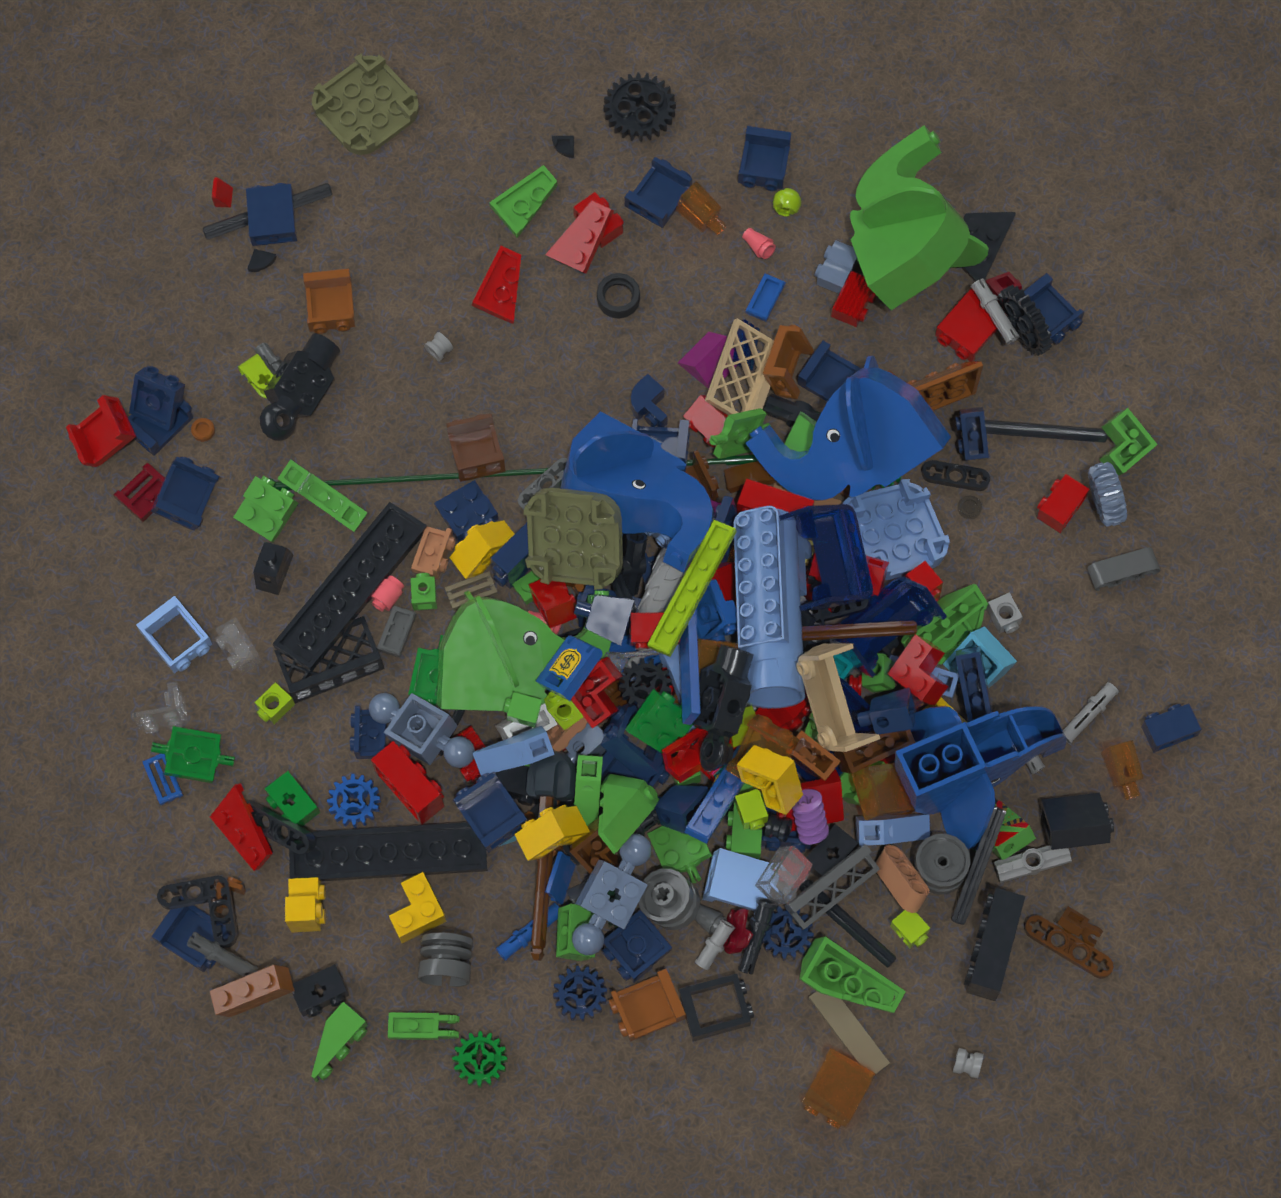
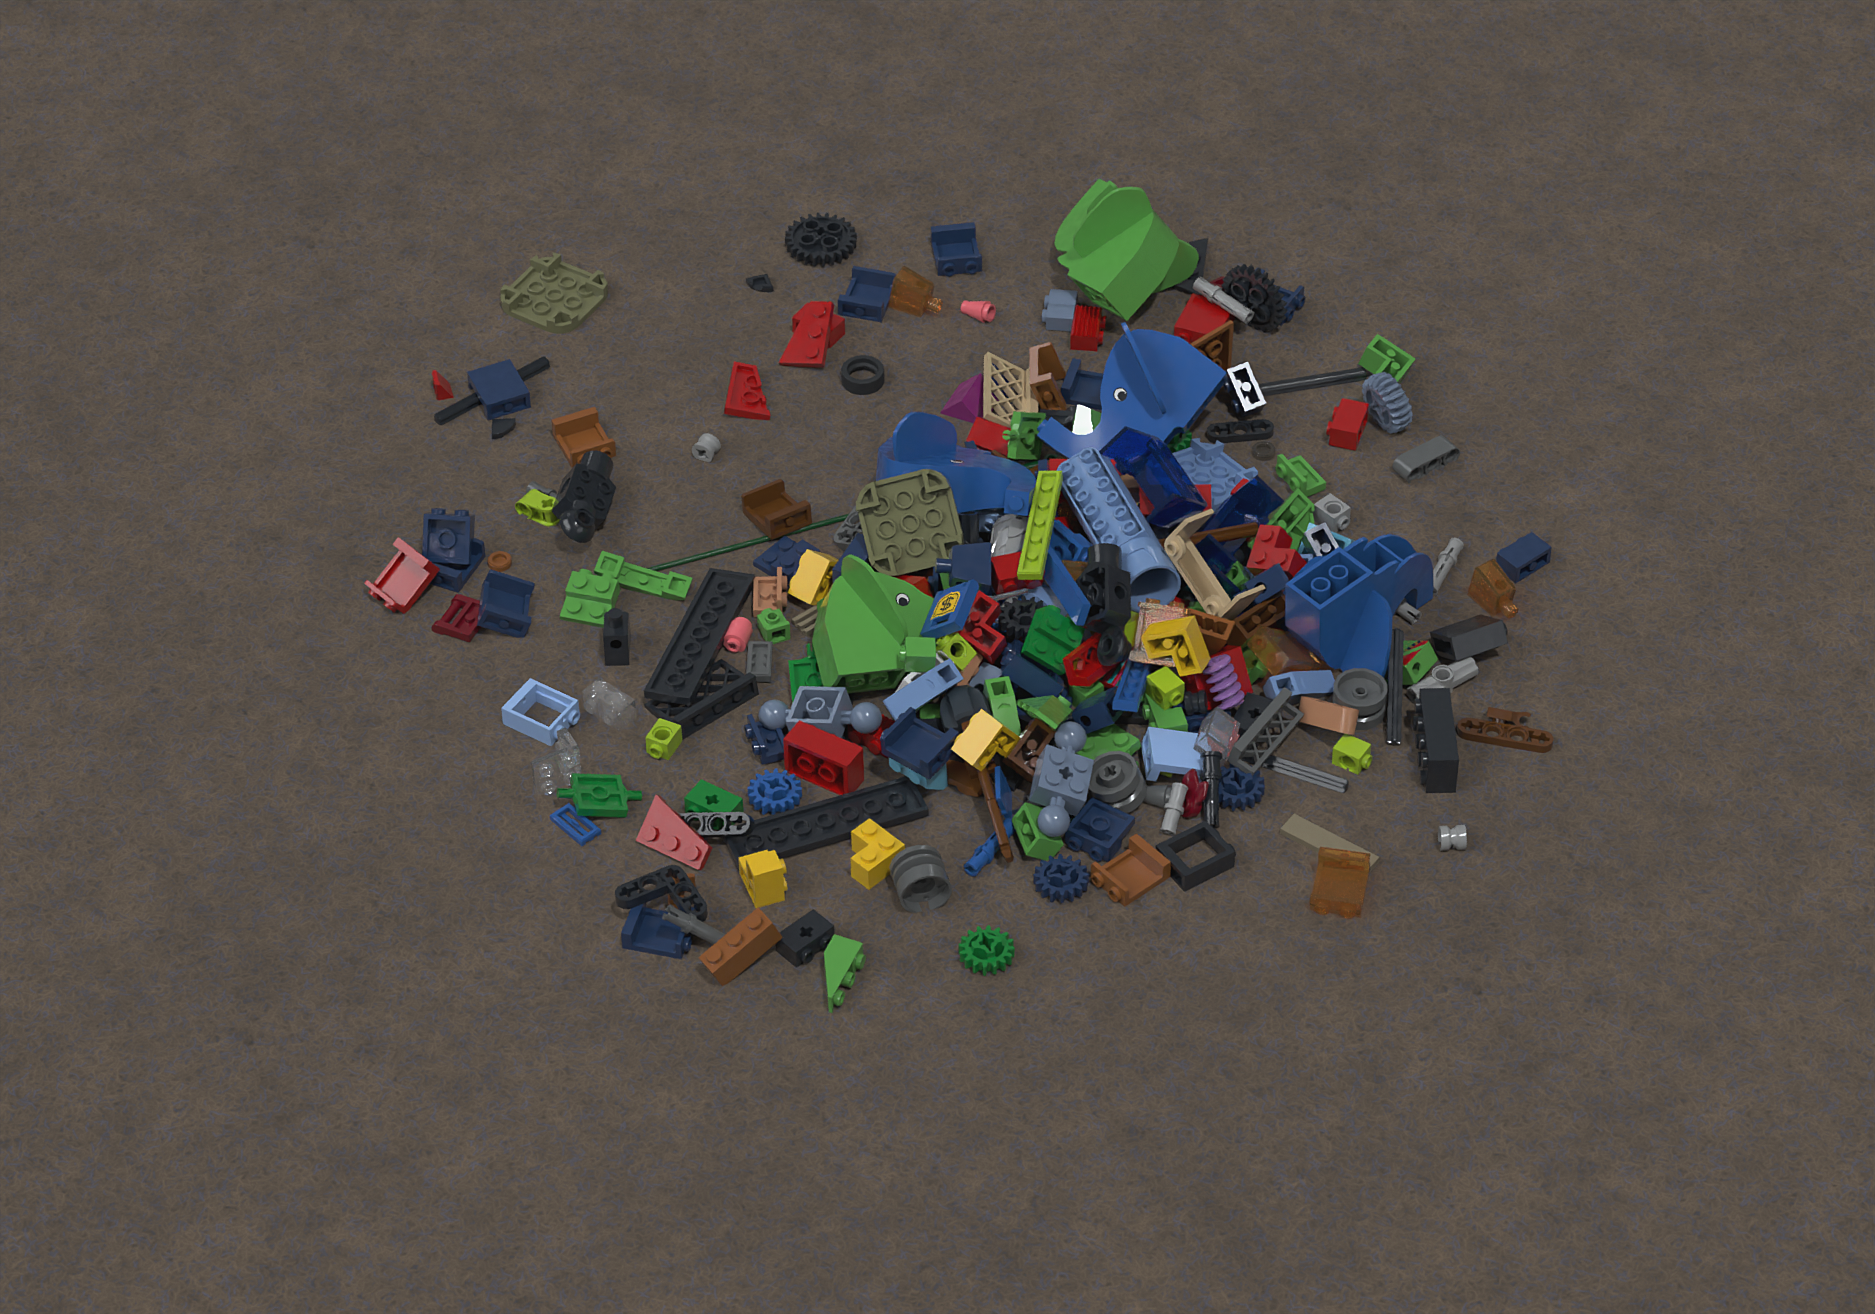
camera: 20 degrees left, 25 degrees down
(420, 1026) = (918, 941): bright green hinge -> none
(524, 199) = (739, 328): bright green wing -> none
(765, 297) = (1003, 344): blue tile -> none
(786, 202) = (991, 275): lime piece -> none
(843, 976) = (1306, 798): bright green wedge -> none
(992, 554) = (1299, 475): none -> bright green bracket

